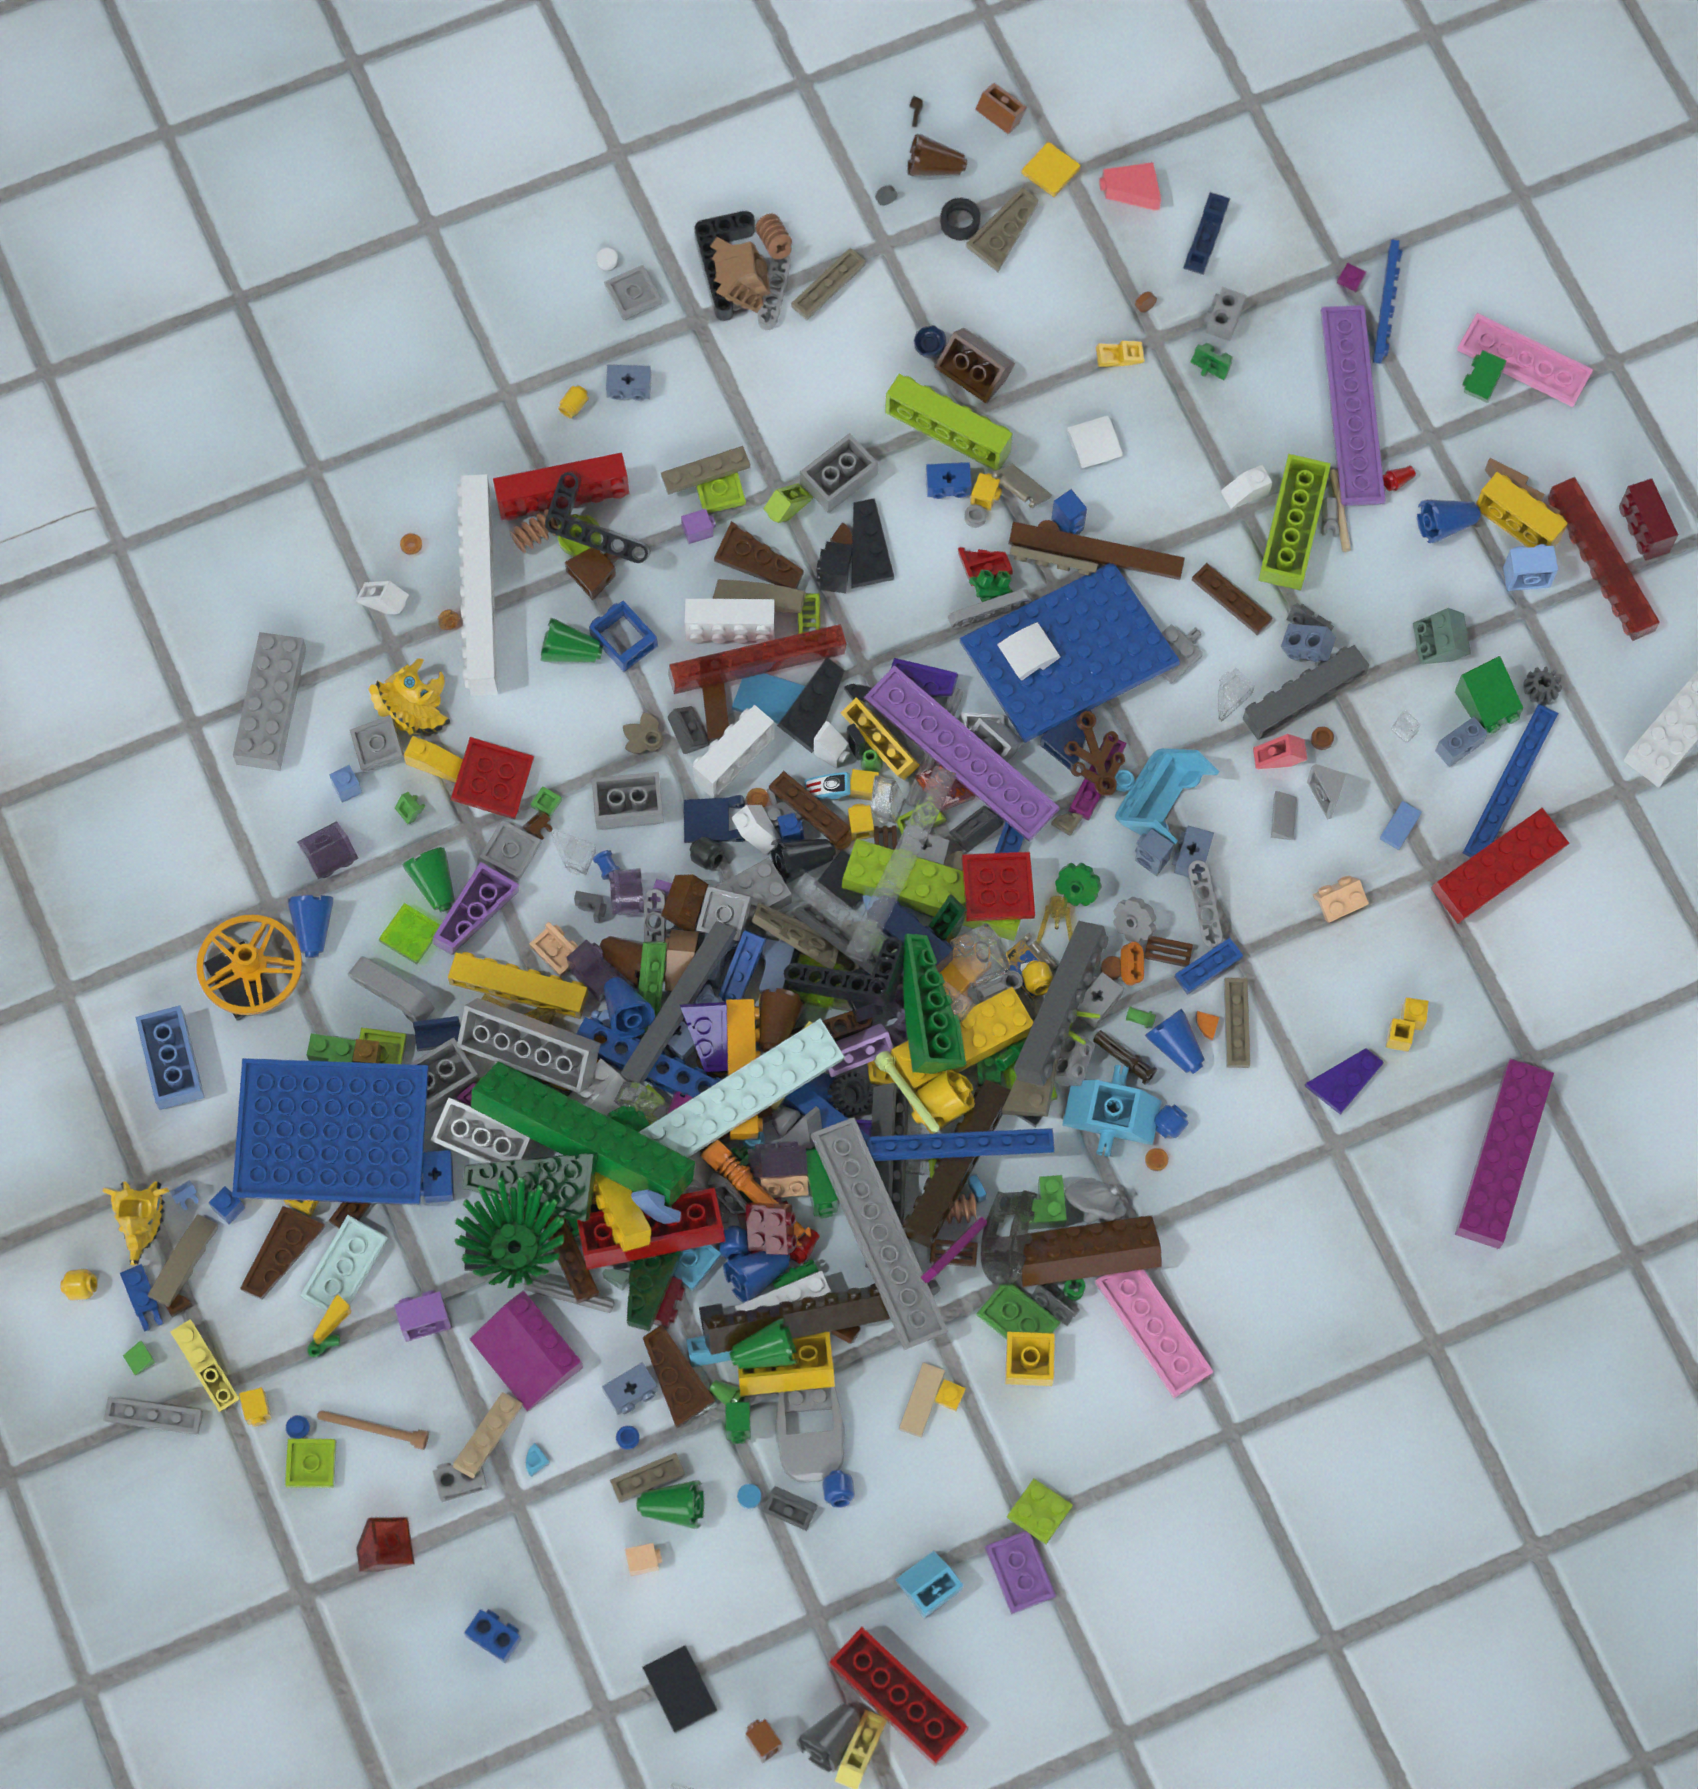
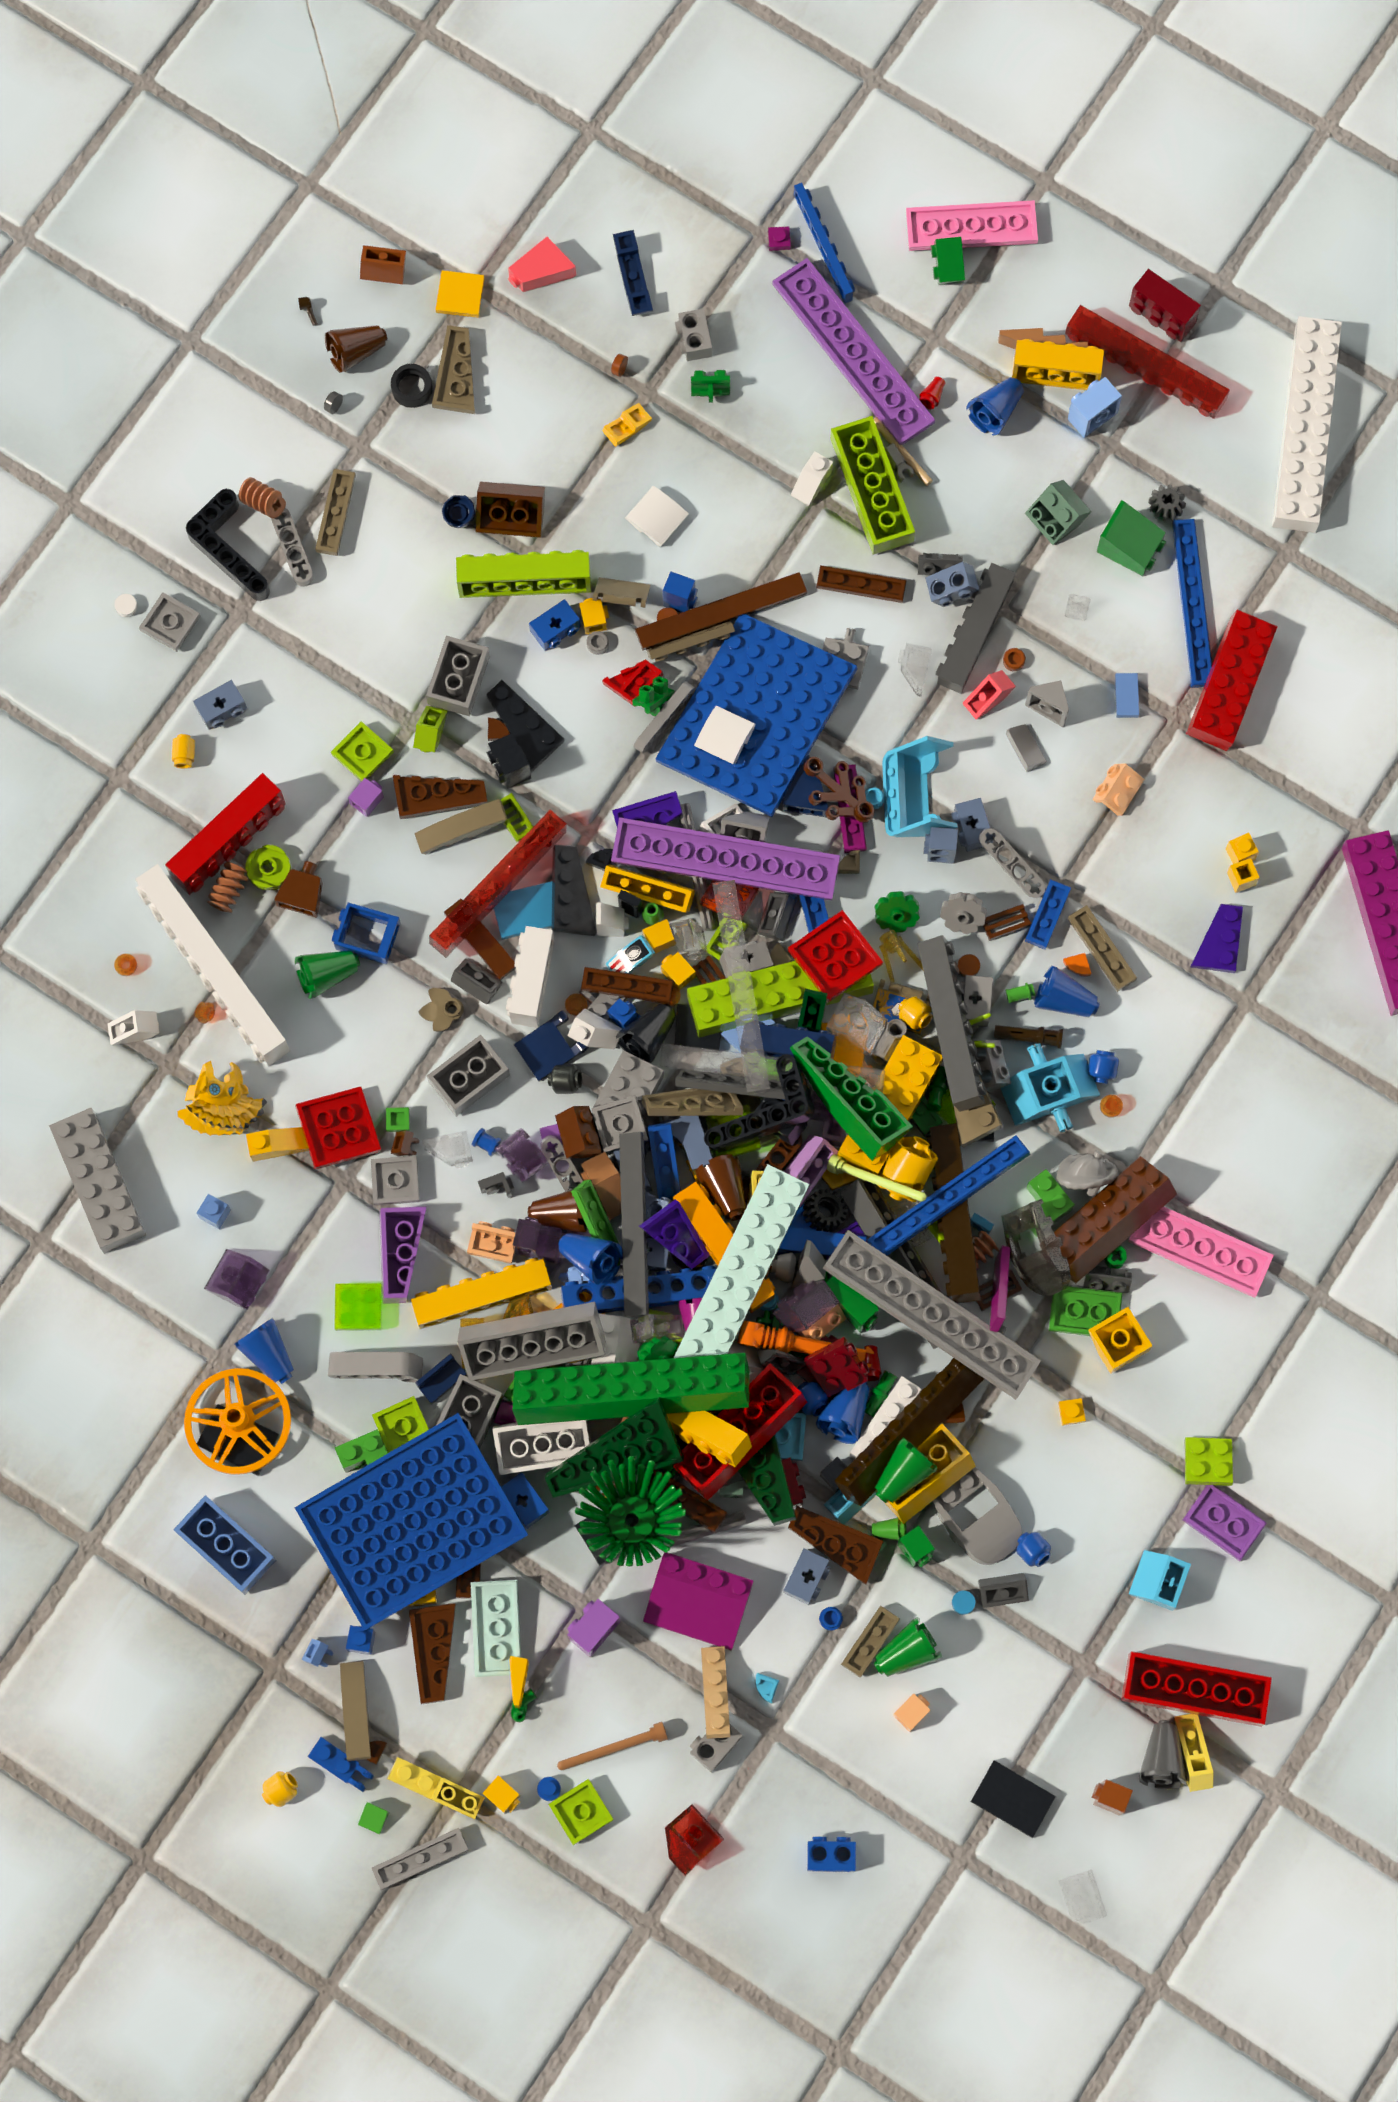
camera: 30 degrees left, 5 degrees up
(138, 1215) = (291, 1698): yellow piece -> none
(367, 1051) = (395, 1434): pearl gold brick -> none
(377, 743) = (217, 1159): light grey plate -> none
(408, 807) = (282, 1198): bright green tile -> none
(432, 878) = (346, 1247): green cone -> none
(588, 529) = (277, 857): black beam -> none
(653, 1205) = (737, 1412): medium blue slope -> none
(705, 470) = (341, 743): dark tan plate -> none
(729, 620) = (451, 863): white brick -> none
(741, 273) = (256, 549): medium nougat slope -> none
(922, 1400) = (1051, 1430): tan tile -> none
(1132, 964) = (984, 951): orange beam -> none
(1461, 741) = (1132, 592): sand blue brick -> none

